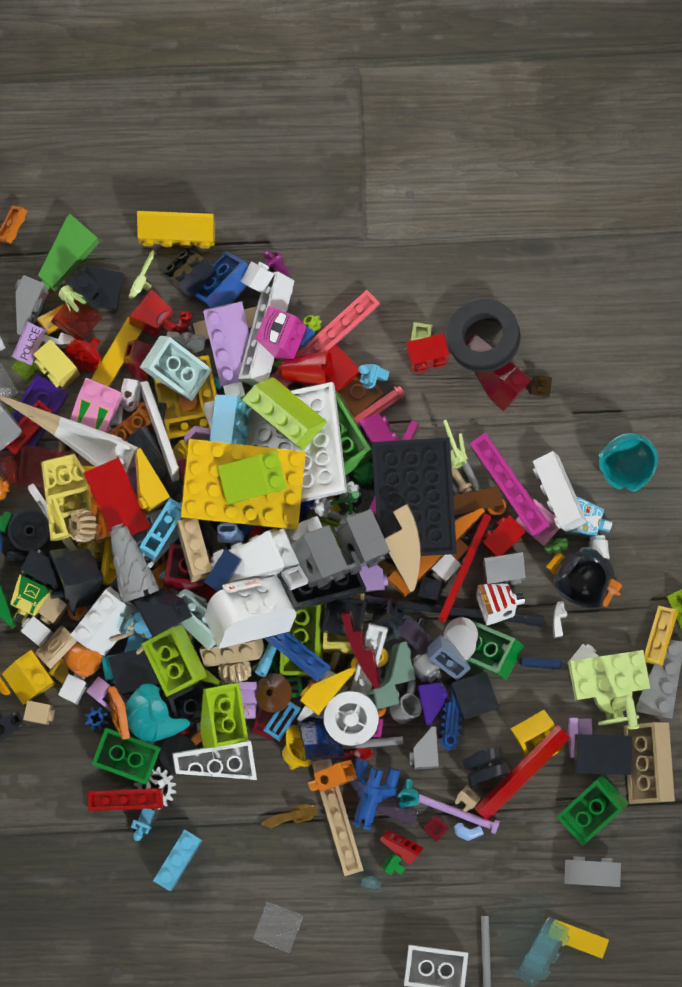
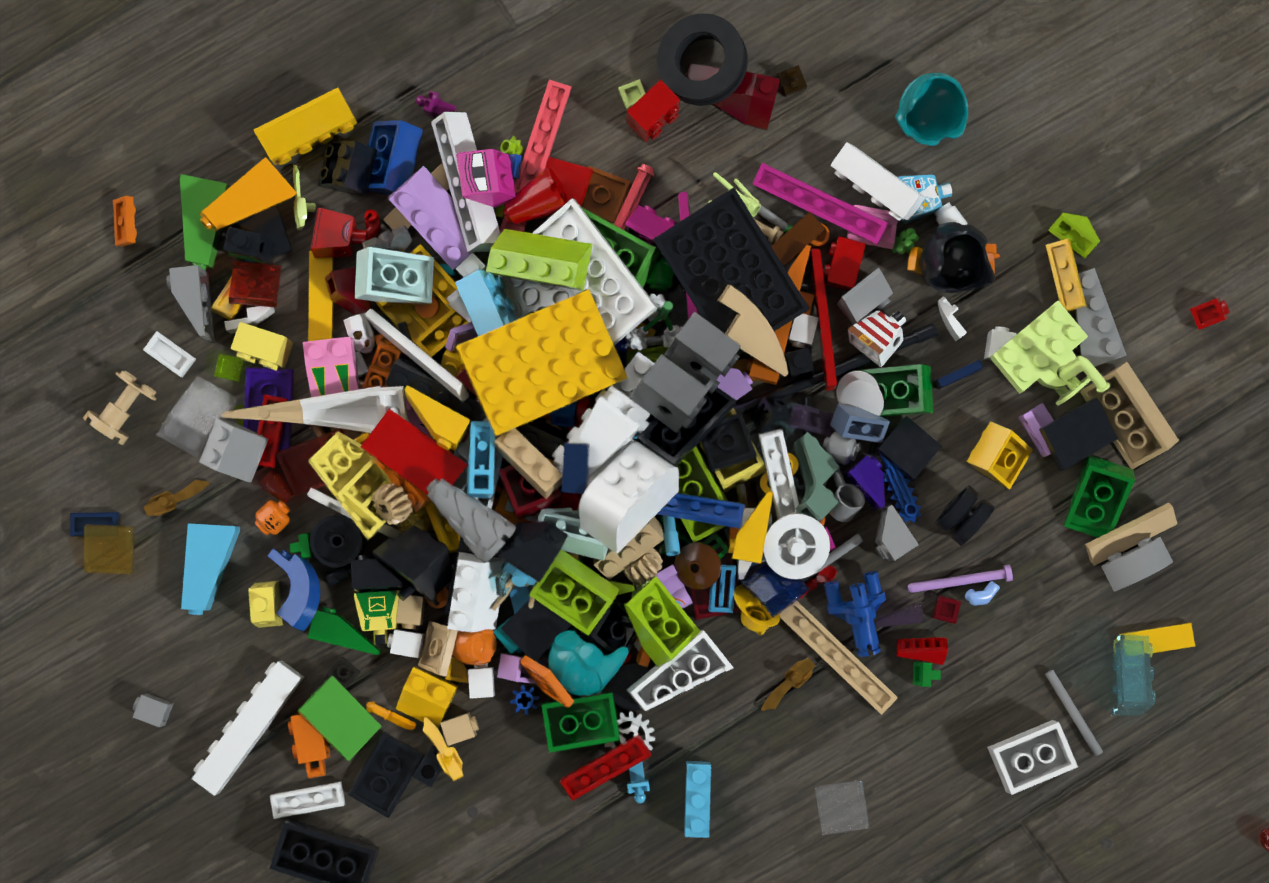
camera: 35 degrees left, 5 degrees up
(18, 728) = (447, 756): none -> yellow piece
(28, 343) = (218, 339): lavender panel -> none
(68, 295) = (230, 263): yellowish green piece -> none
(84, 354) = (285, 317): red tile -> none
(110, 254) = (251, 194): none -> light orange slope
(229, 533) = (557, 423): medium blue piece -> none
(242, 585) = (605, 472): white sticker -> none
(252, 477) = (549, 349): lime slope -> none
(257, 276) = (425, 130): white brick -> none
(294, 577) = (654, 431): white tile -> none
(333, 776) = (816, 613): orange torso -> none
(364, 655) = (772, 471): dark red slope -> none
(371, 373) = (606, 167): medium azure piece -> none
(371, 882) = (913, 706): clear light blue tile -> none
(408, 795) = (900, 592): teal piece -> none
(469, 797) = (963, 557): tan tile -> none
(522, 772) = (1006, 500): red tile -> none
(598, 849) = (1131, 533): none -> tan tile

